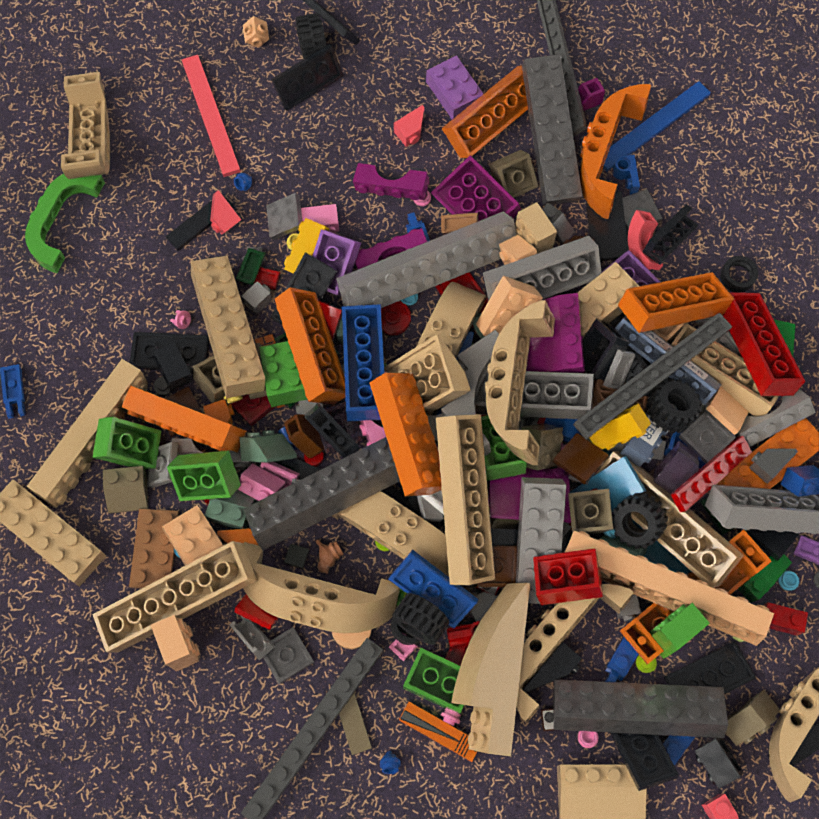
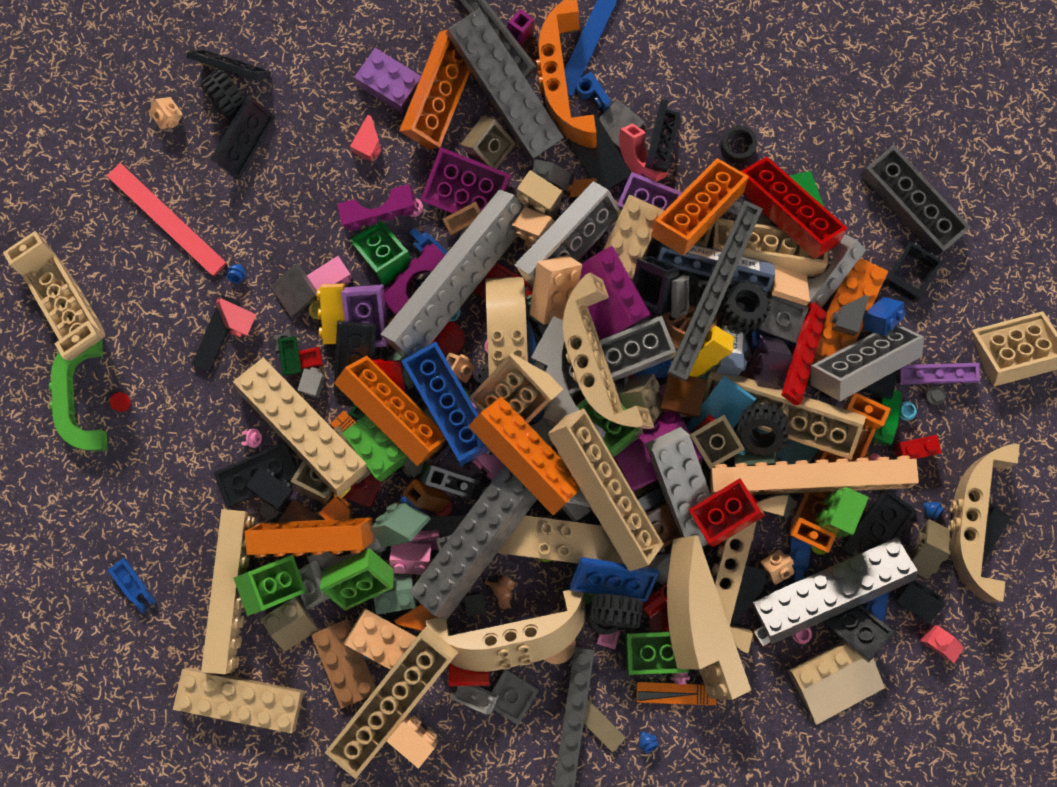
camera: 30 degrees left, 10 degrees up
(90, 239) = (120, 402): none -> red tile
(375, 220) = (382, 252): none -> green slope
(392, 344) = (460, 366): none -> light nougat brick
(594, 661) = (778, 566): none -> light nougat brick
(773, 685) = (933, 510): none -> blue plate

